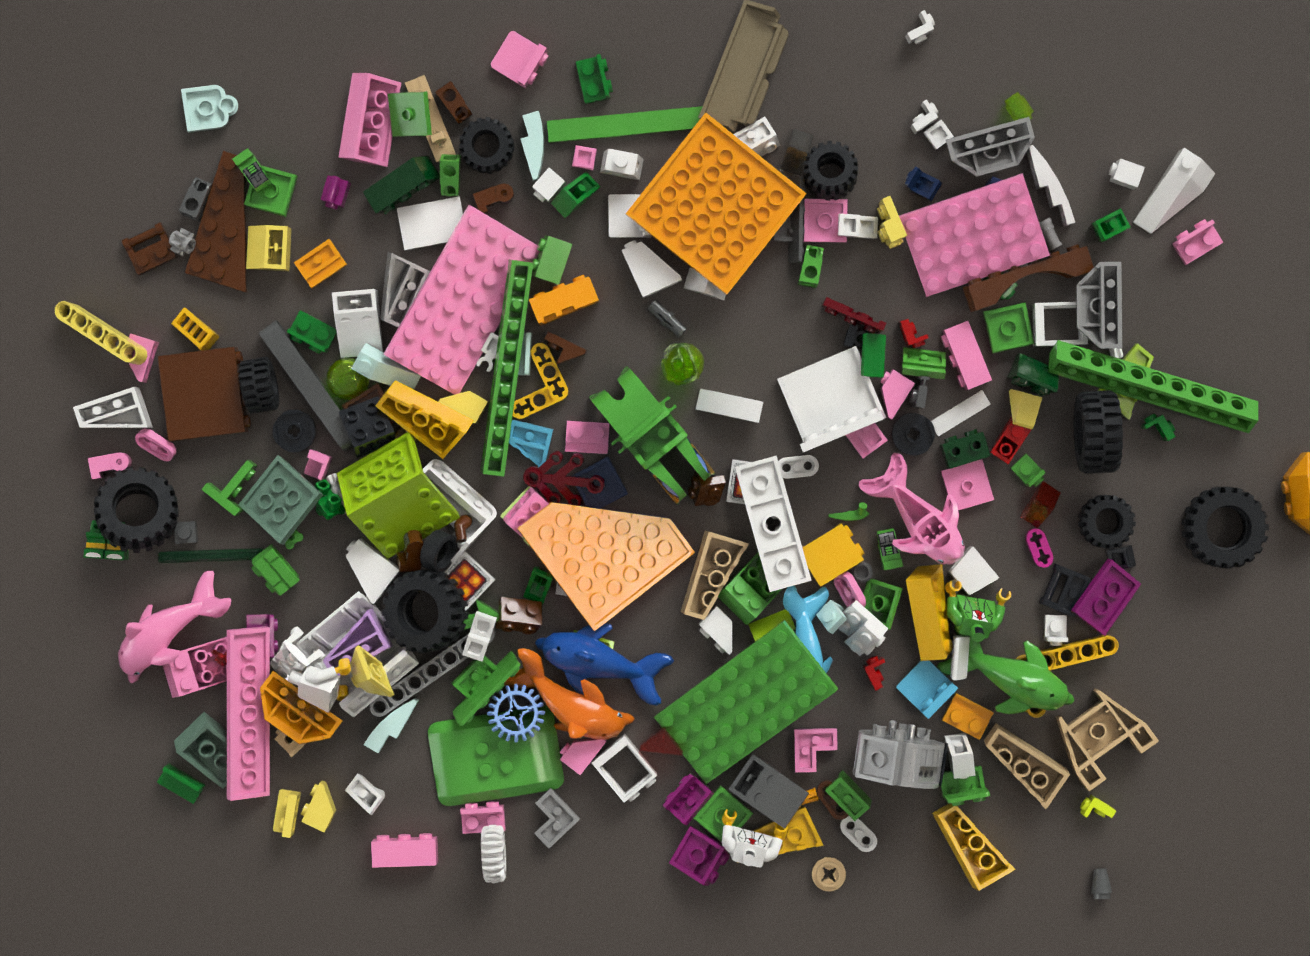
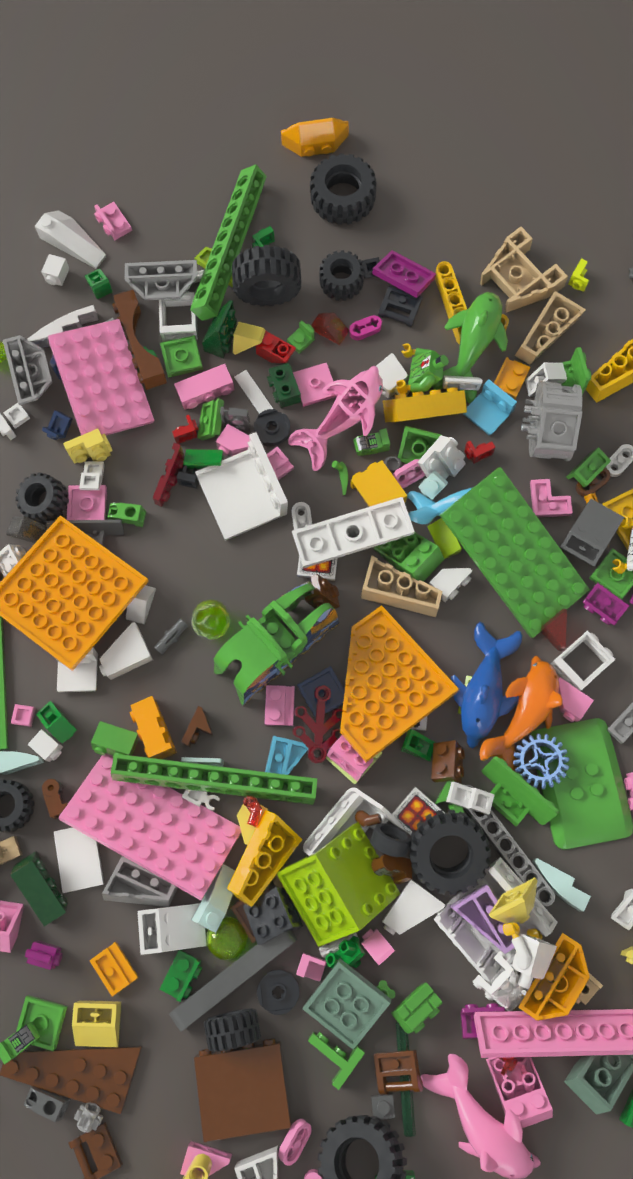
camera: 90 degrees left, 15 degrees down
(205, 339) = (187, 1089): yellow slope -> none
(223, 548) = (397, 1064): none -> reddish brown plate
(335, 532) = (377, 945): none -> bright pink slope
(450, 174) = (32, 840): bright green leg -> none
(474, 409) = (254, 808): none -> clear red arm
(546, 391) = (238, 743): yellow beam -> none
(622, 164) = (28, 681): white torso -> none
(729, 405) = (249, 578): white slope -> none
(1055, 629) = (433, 313): white bracket -> none

